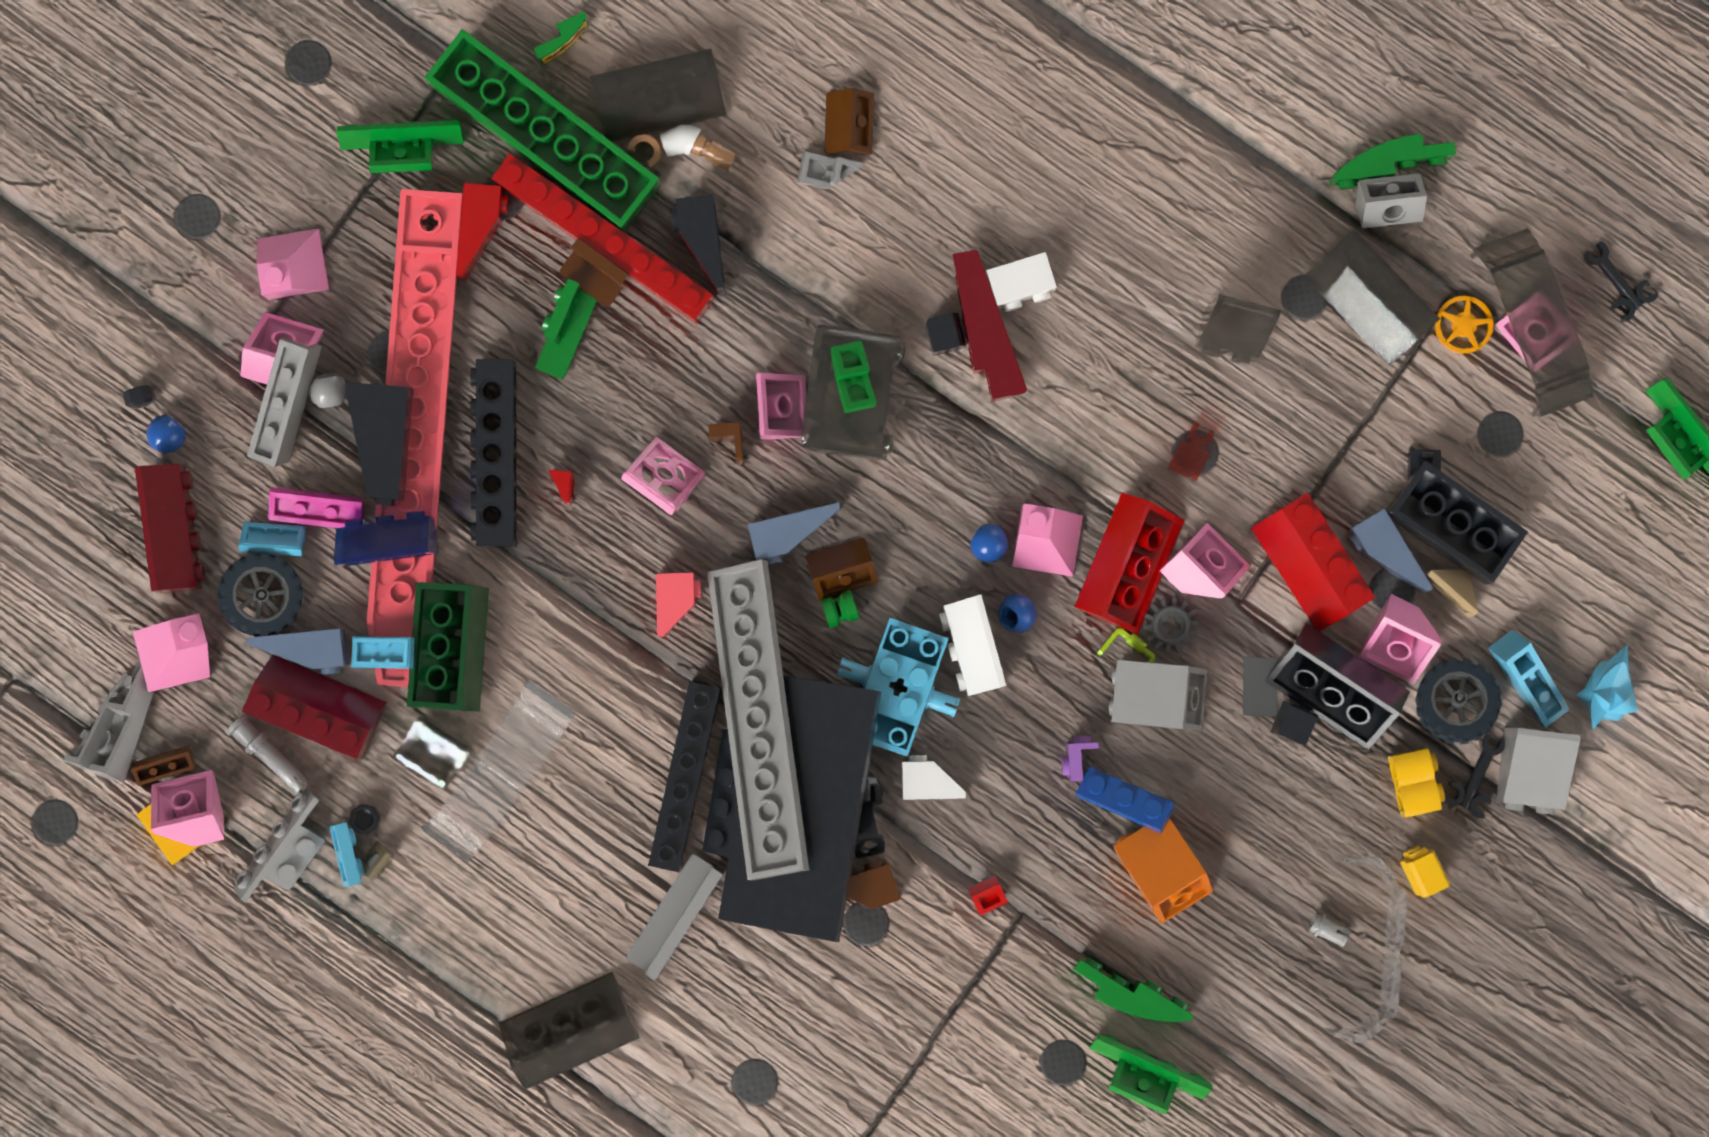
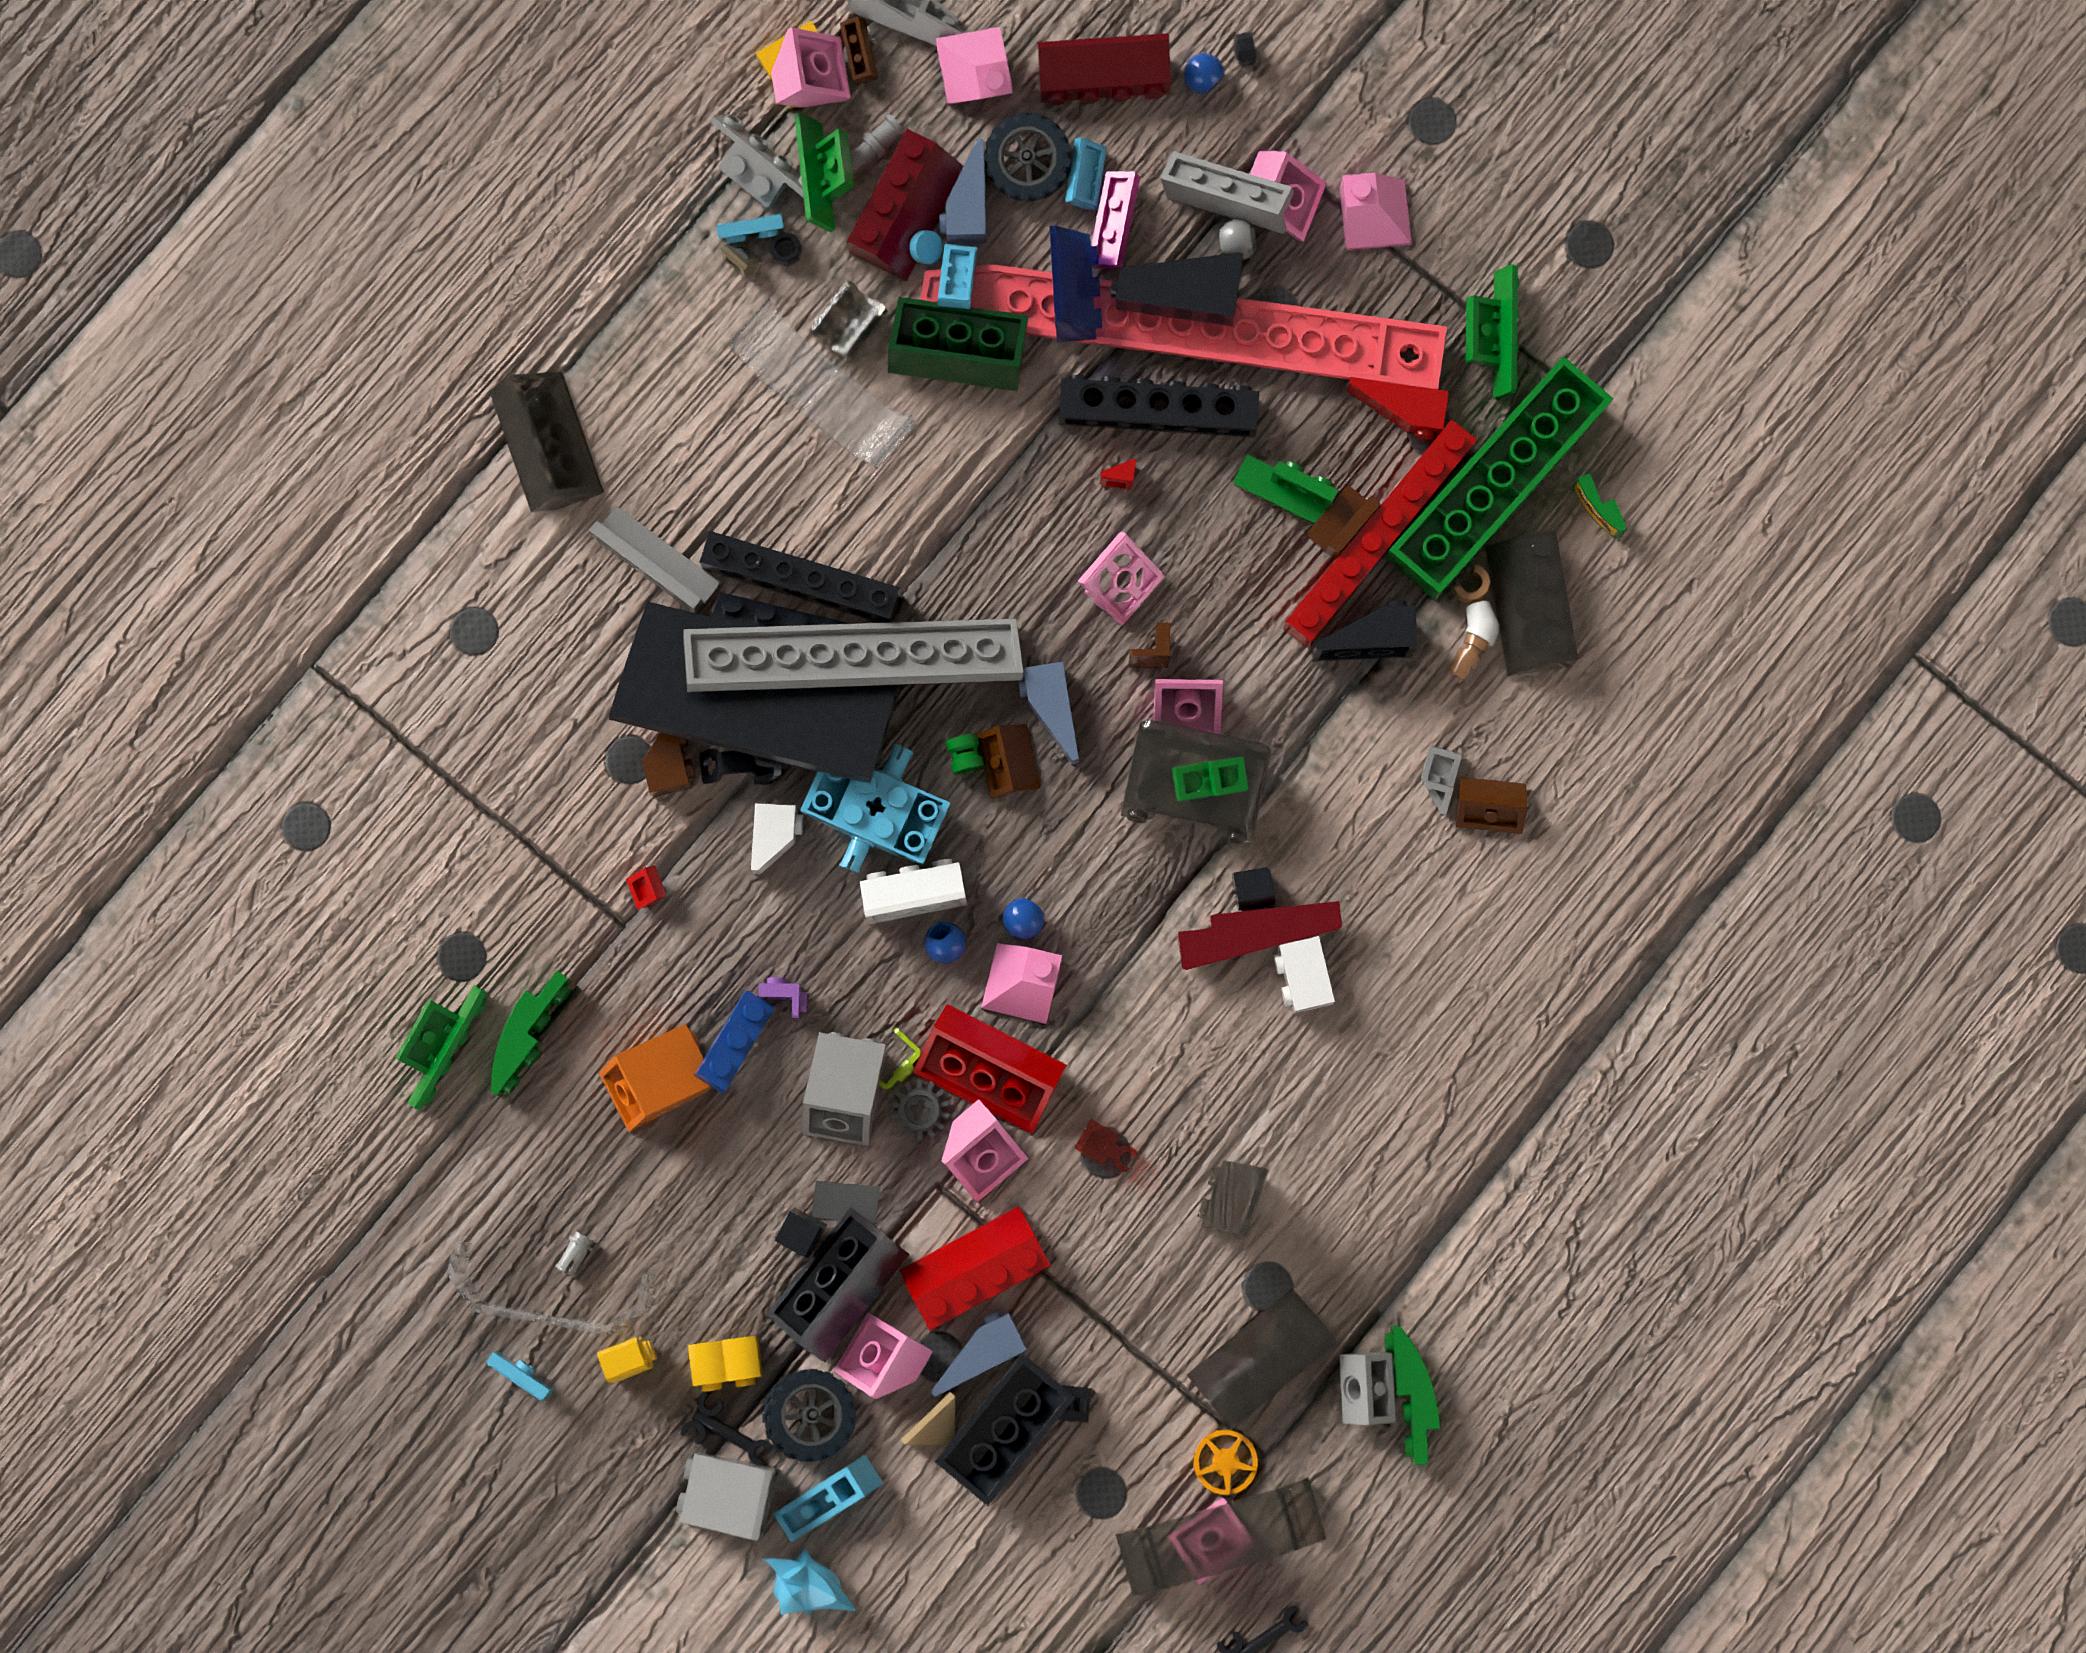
camera: 100 degrees right, 5 degrees down
(286, 787) = (824, 169): none -> green bracket
(354, 685) = (926, 247): none -> medium azure tile
(675, 598) = (989, 581): coral slope -> none
(1444, 968) = (520, 1374): none -> medium azure plate

